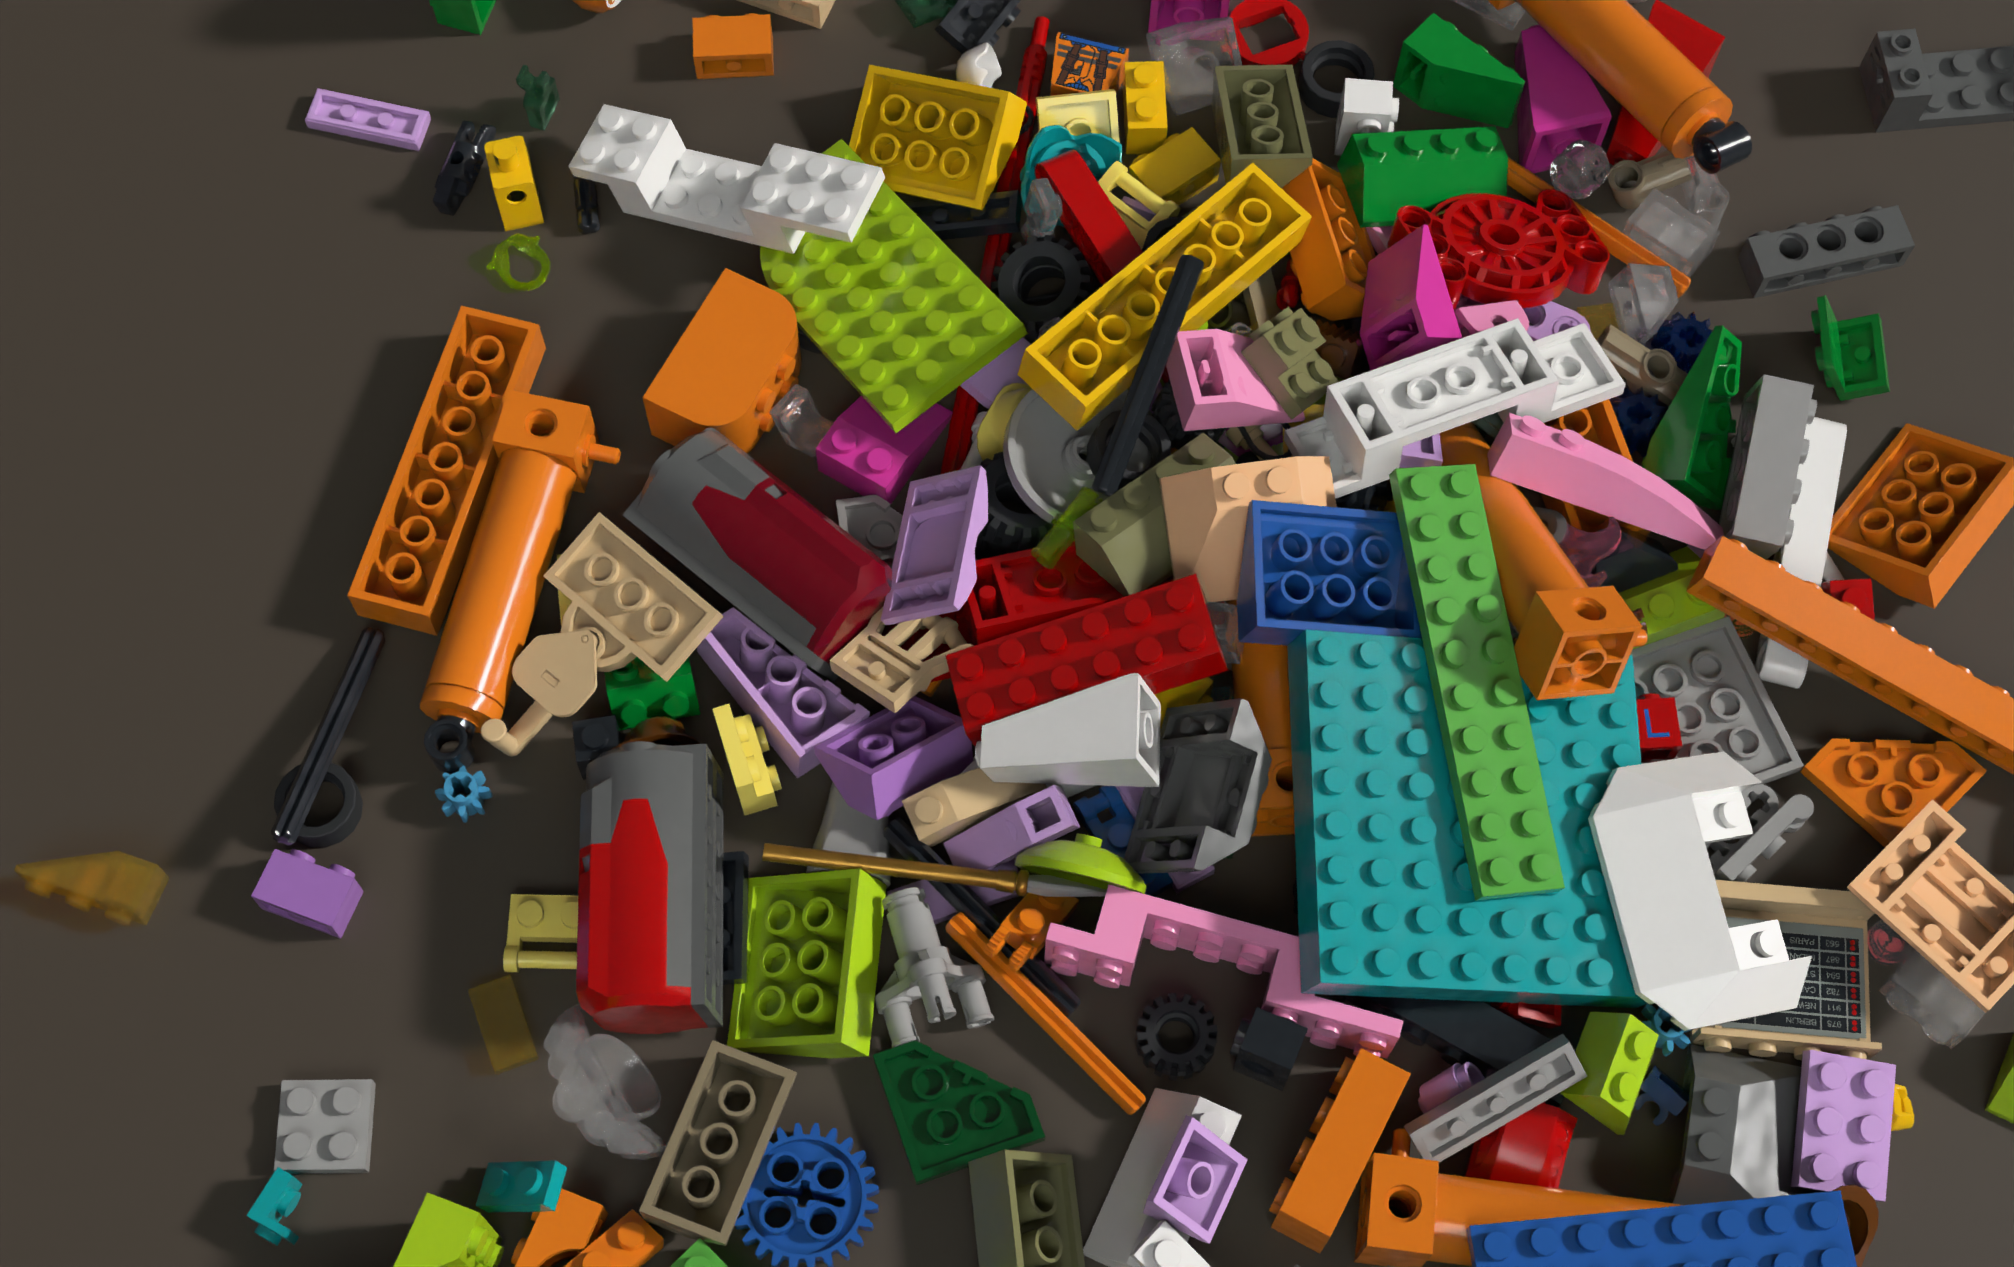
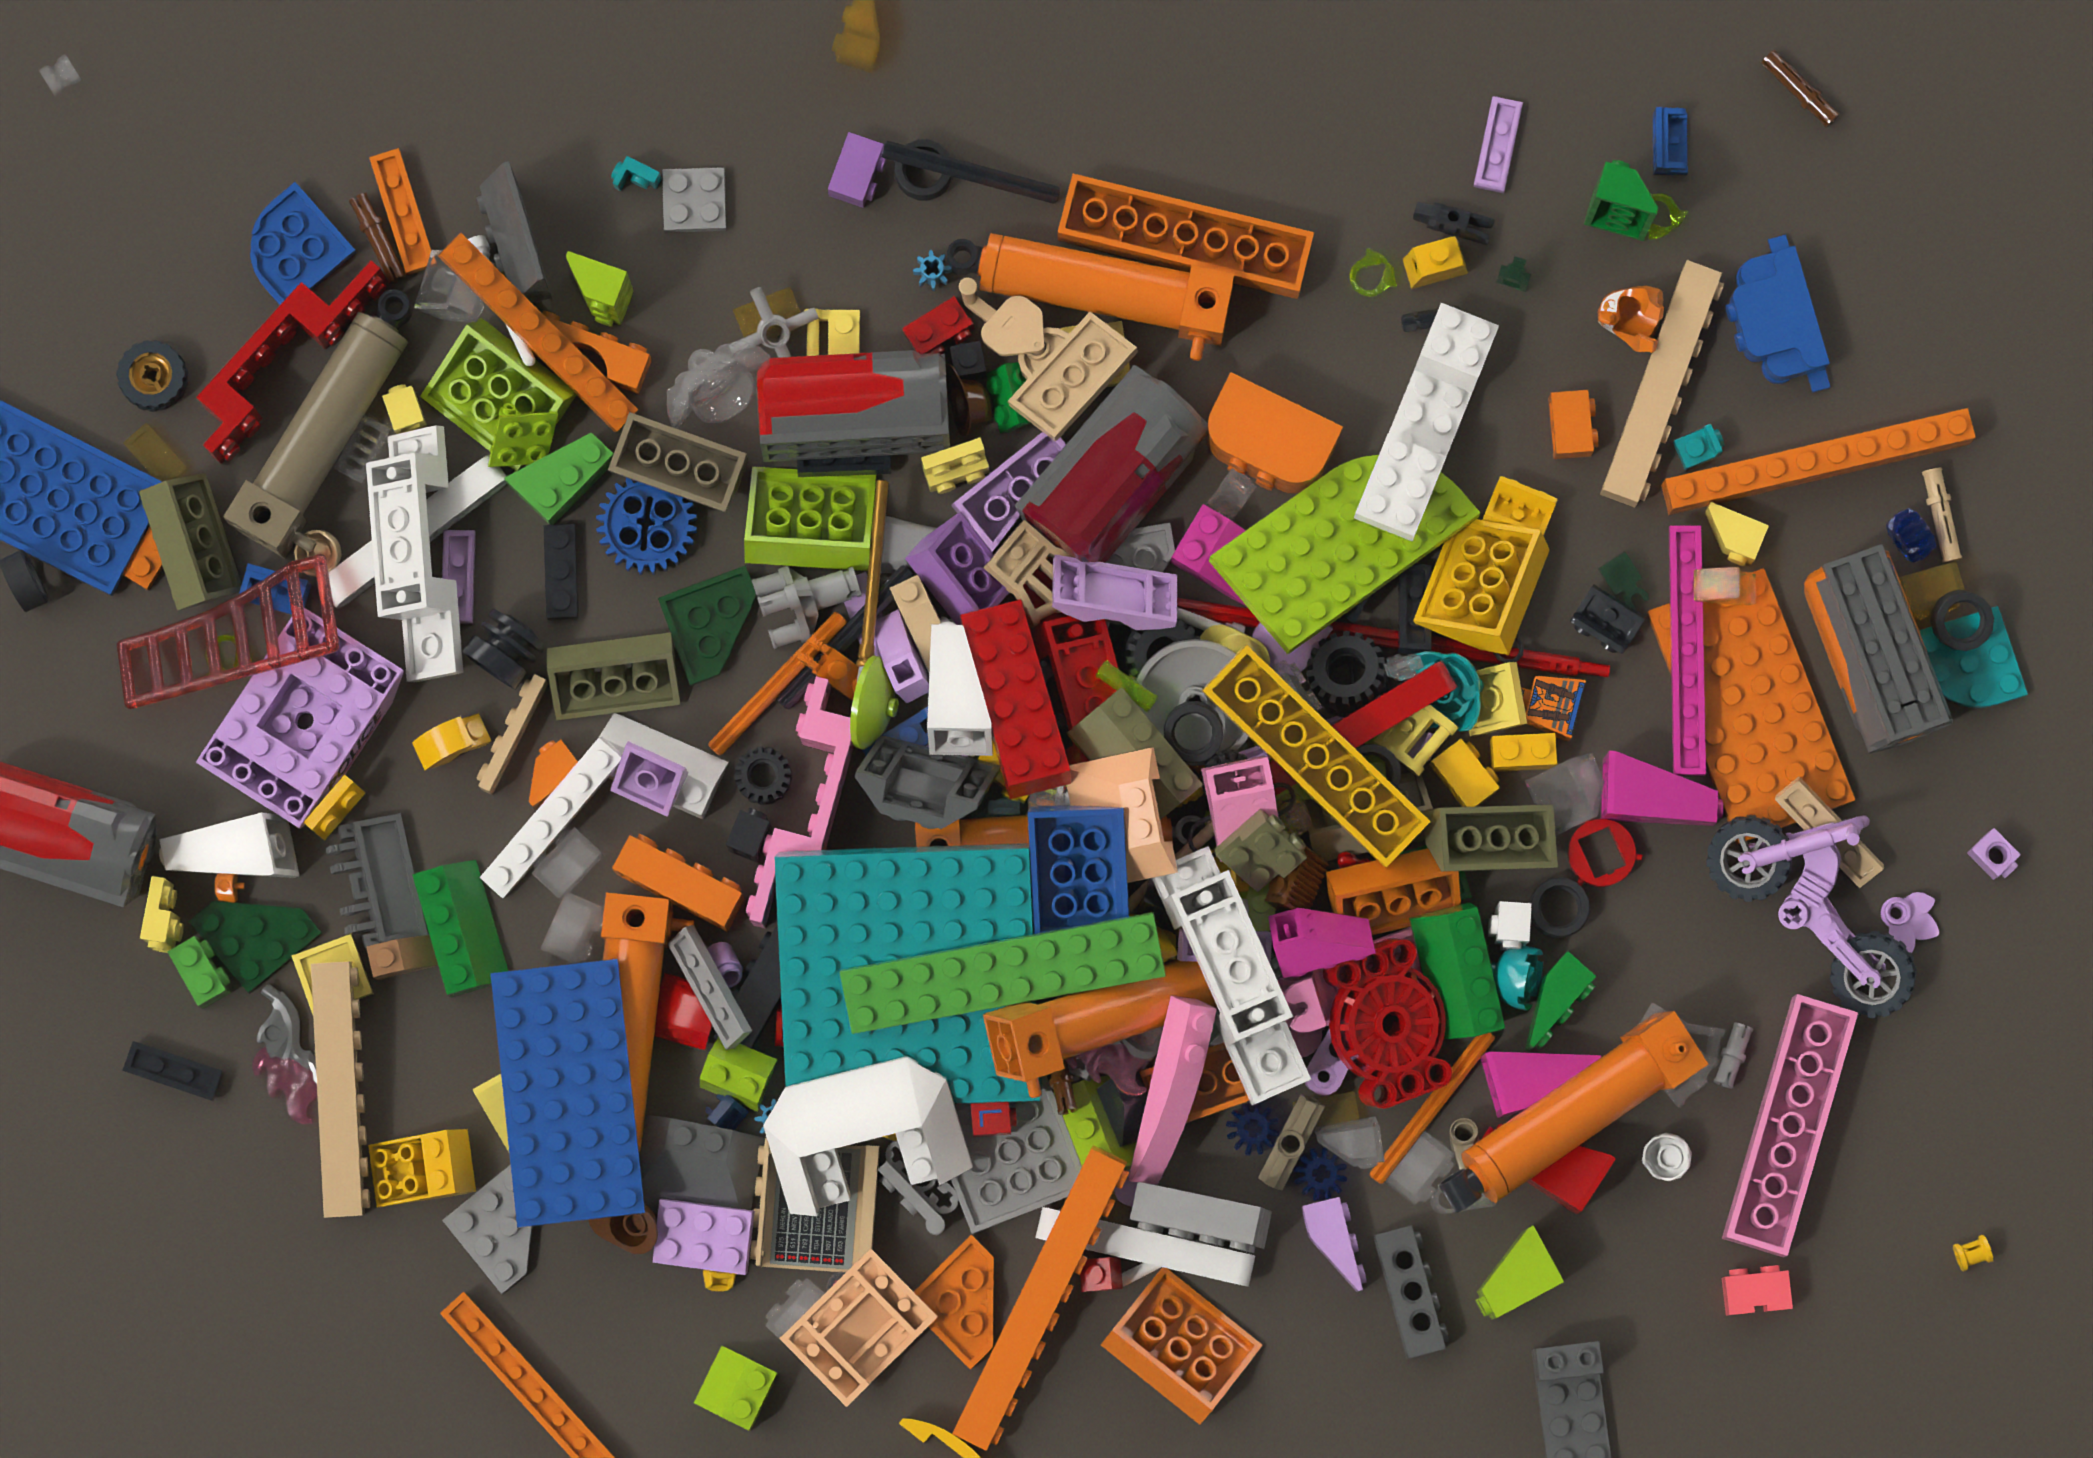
camera: 90 degrees right, 15 degrees up
(516, 1011) = (769, 319): none -> light grey bar
(521, 1186) = (649, 334): teal plate -> none
(547, 788) = (939, 328): none -> red bracket
(831, 103) = (1519, 505): none -> yellow bracket
(978, 66) = (1546, 618): white hair -> none
(1148, 375) = (1234, 737): black axle -> none
(1428, 109) = (1518, 976): none -> teal cylinder
(1580, 169) = (1469, 1095): clear head -> none
(1693, 434) = (1235, 1171): green wedge -> none
(1770, 330) = (1329, 1233): none -> lavender slope
(1801, 124) = (1519, 1276): none -> lime slope
(1850, 353) = (1316, 1297): green bracket -> none

